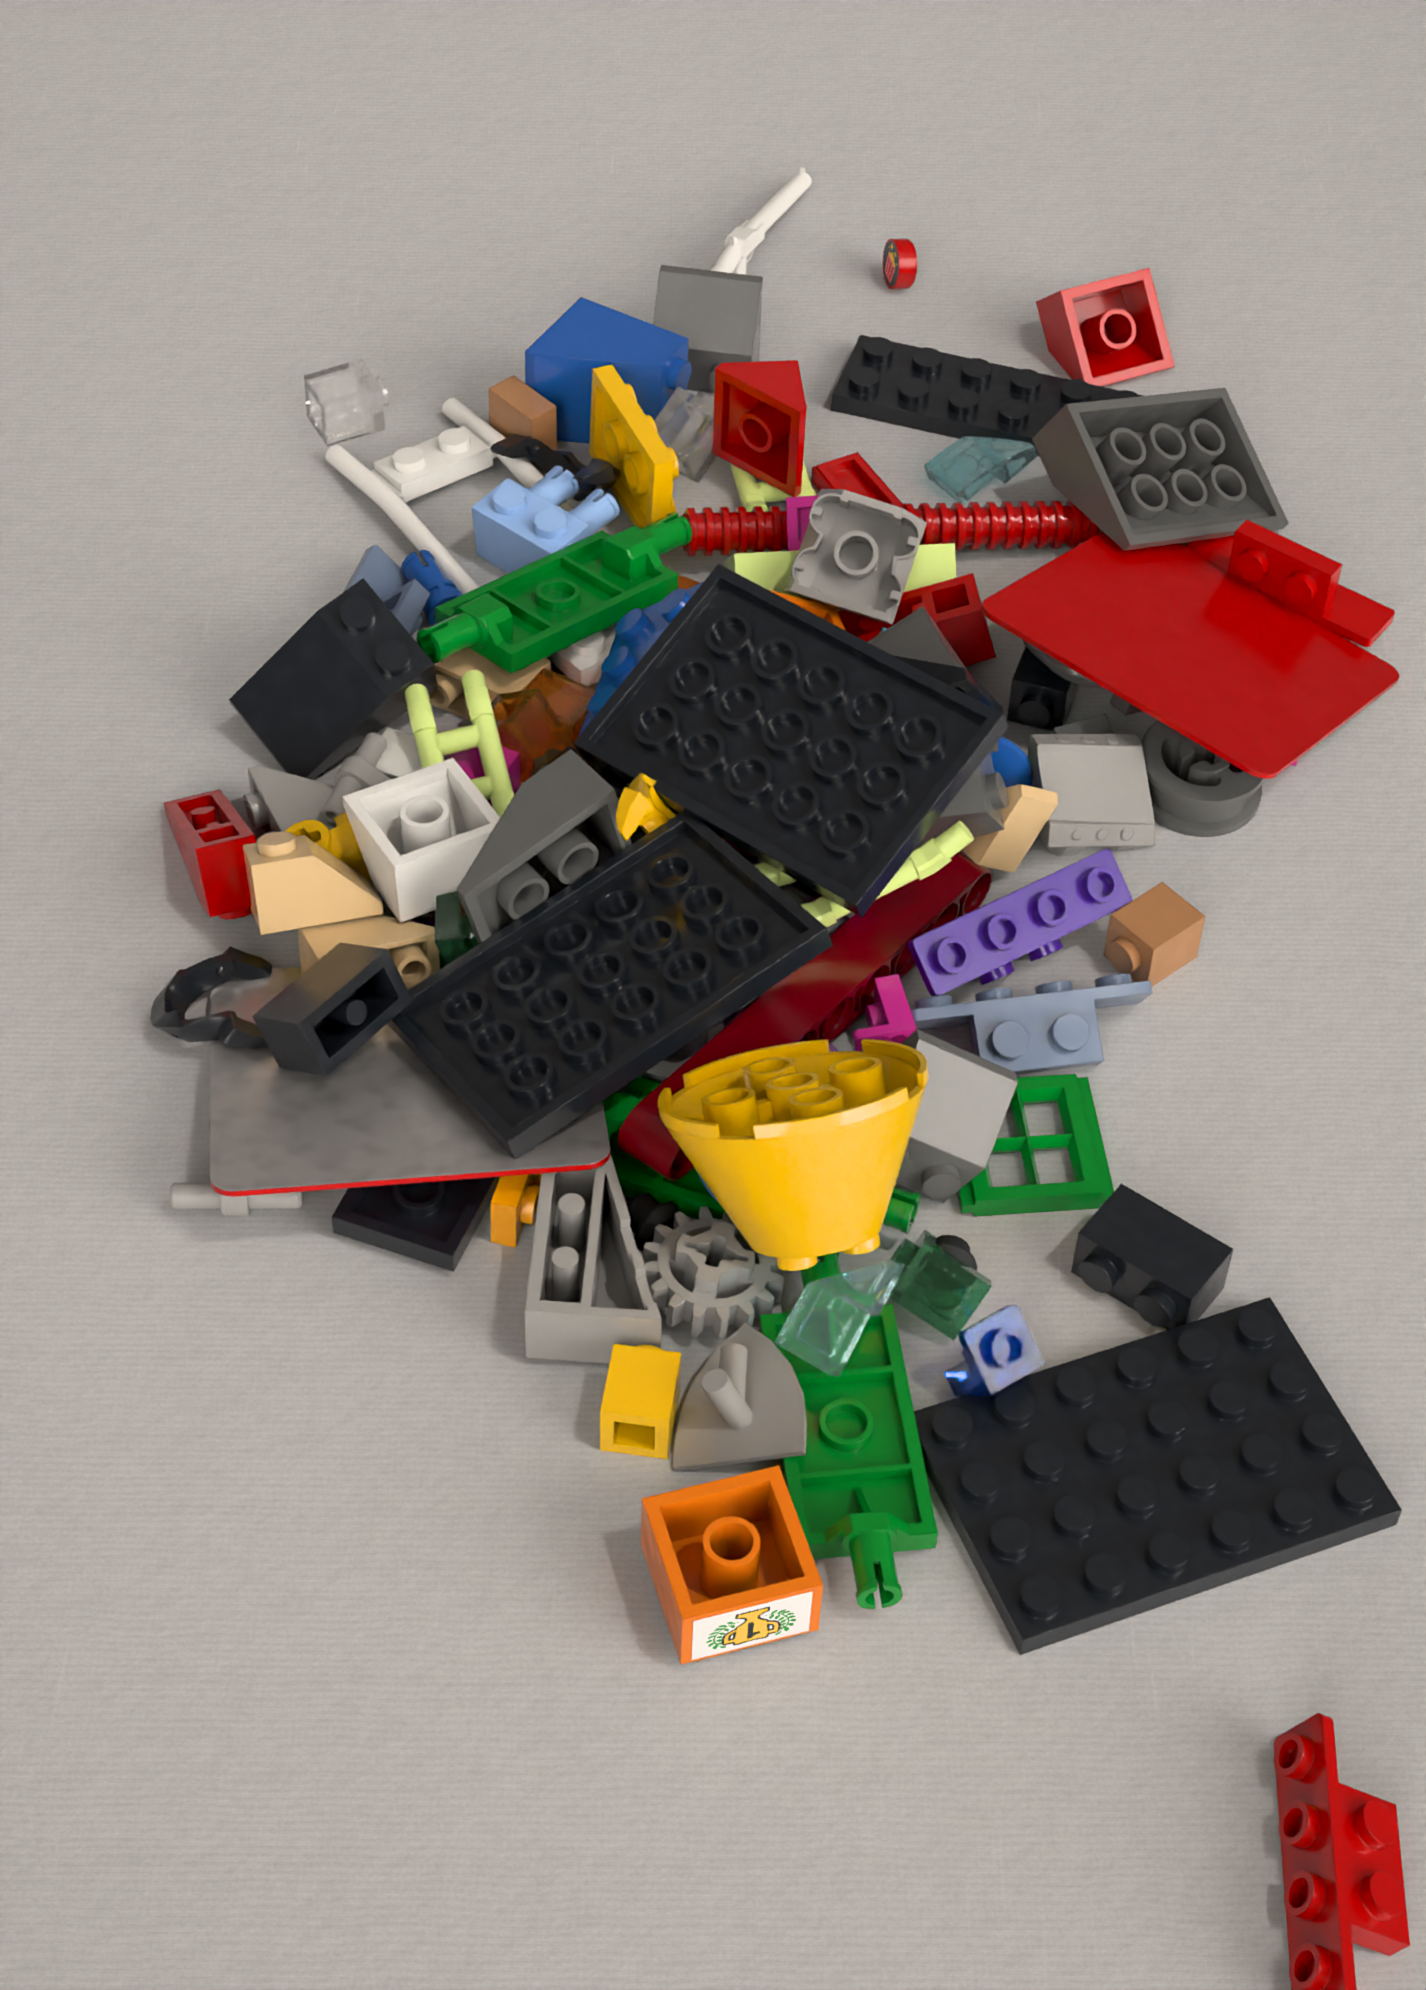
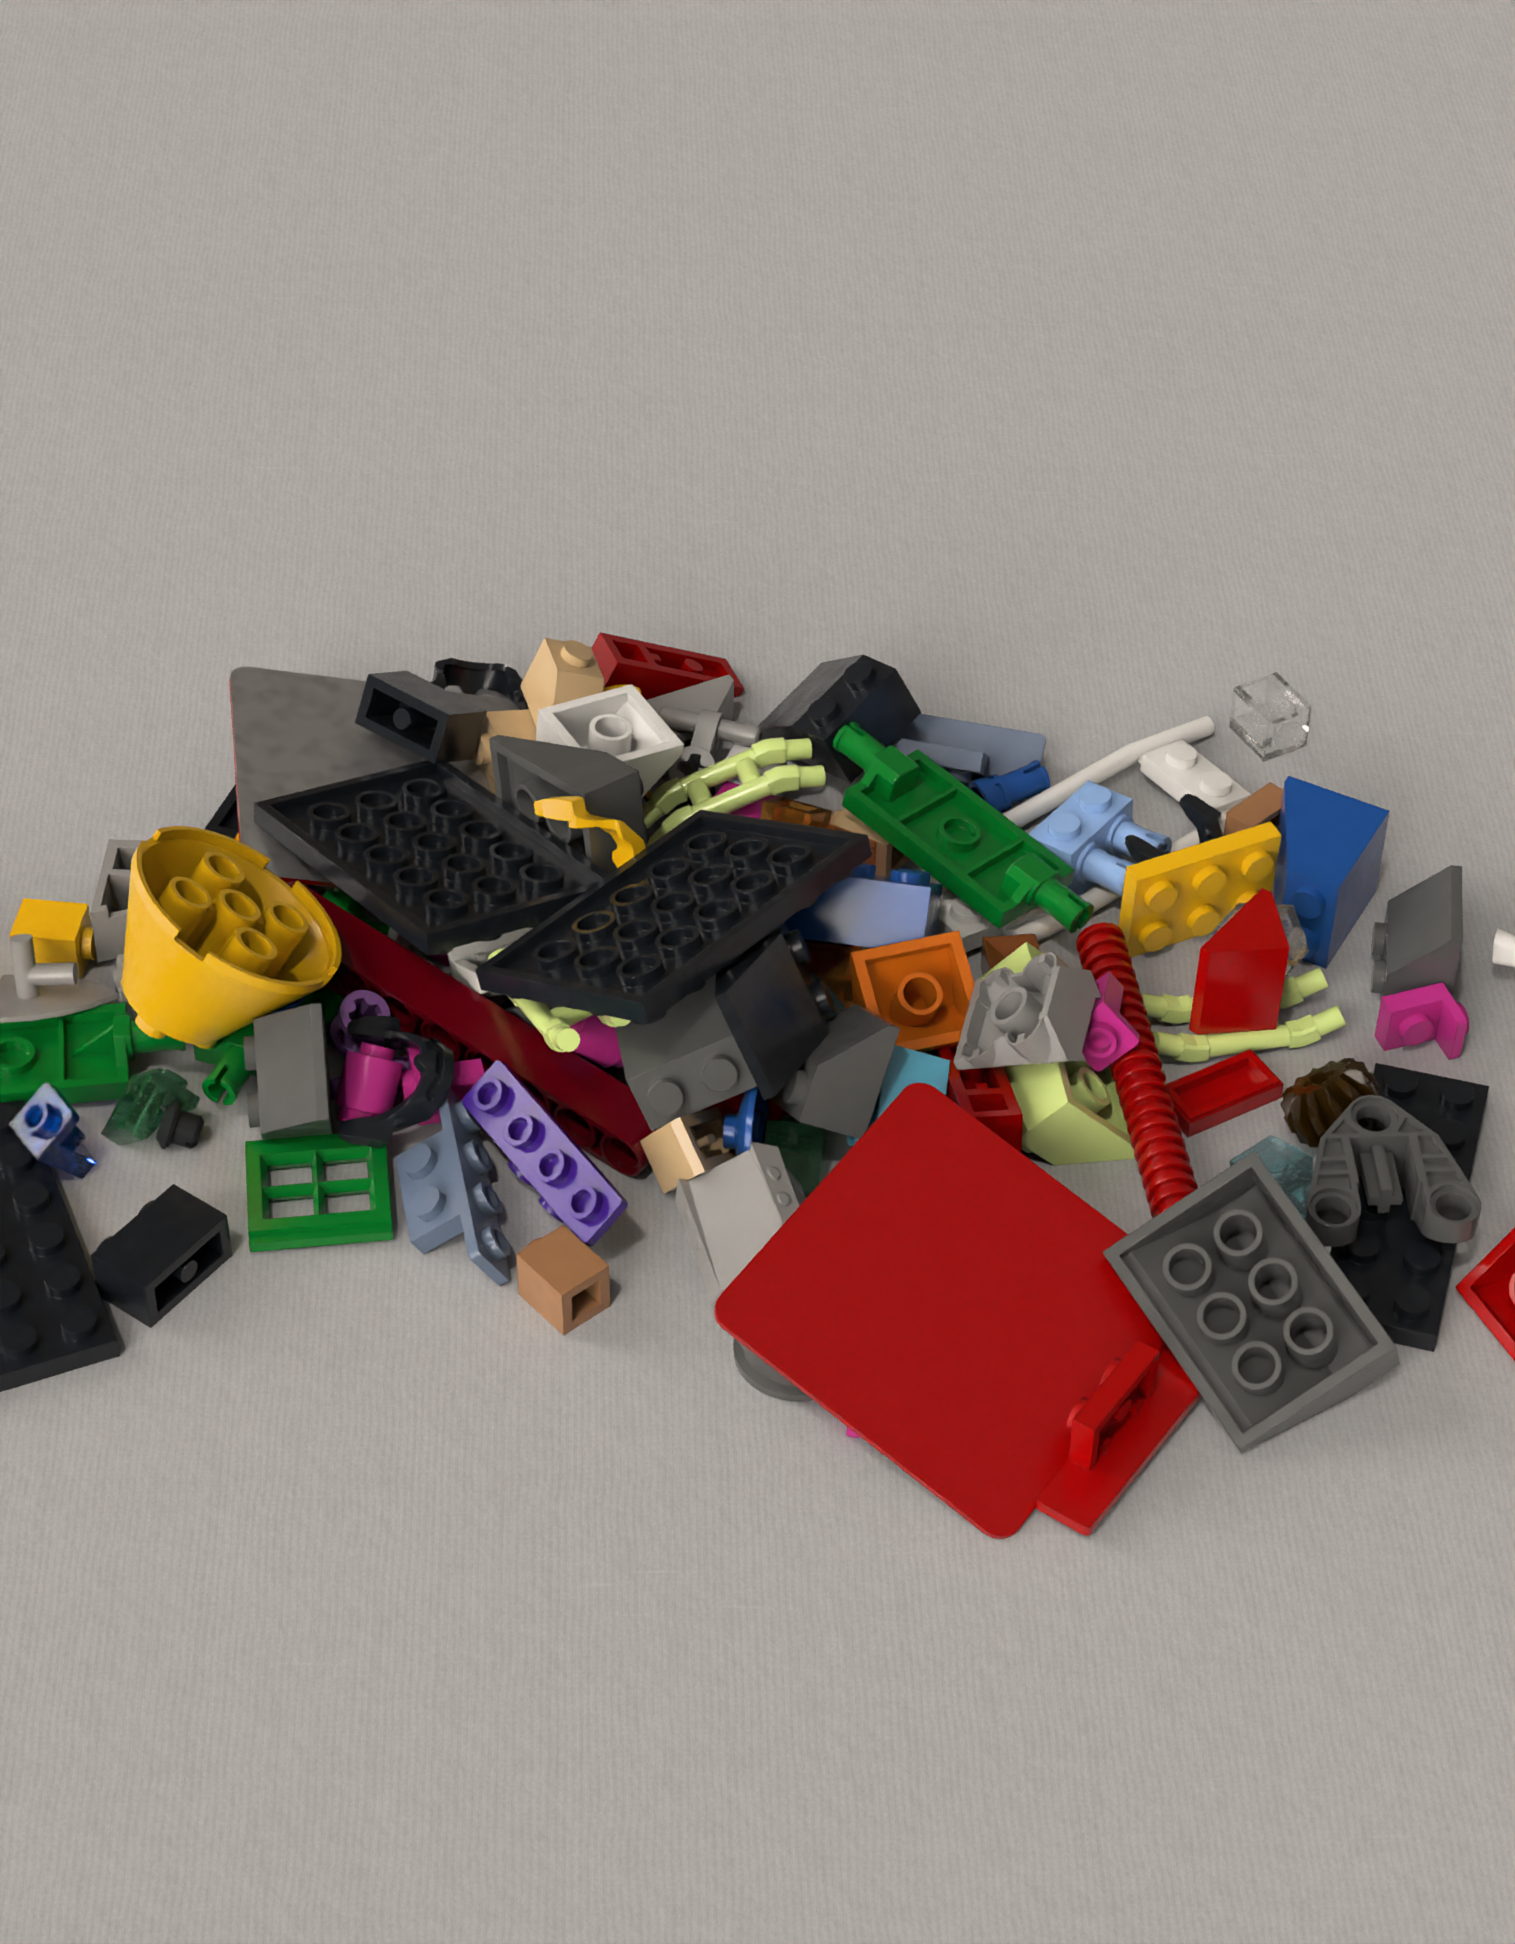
camera: 90 degrees right, 5 degrees down
(786, 342) = (1420, 1017): none -> dark pink bracket
(834, 1314) = (91, 1016): clear light blue slope -> none
(893, 994) = (436, 1073): none -> black helmet
(905, 411) = (1323, 1096): none -> dark brown gear
(1009, 373) = (1433, 1183): none -> dark grey connector

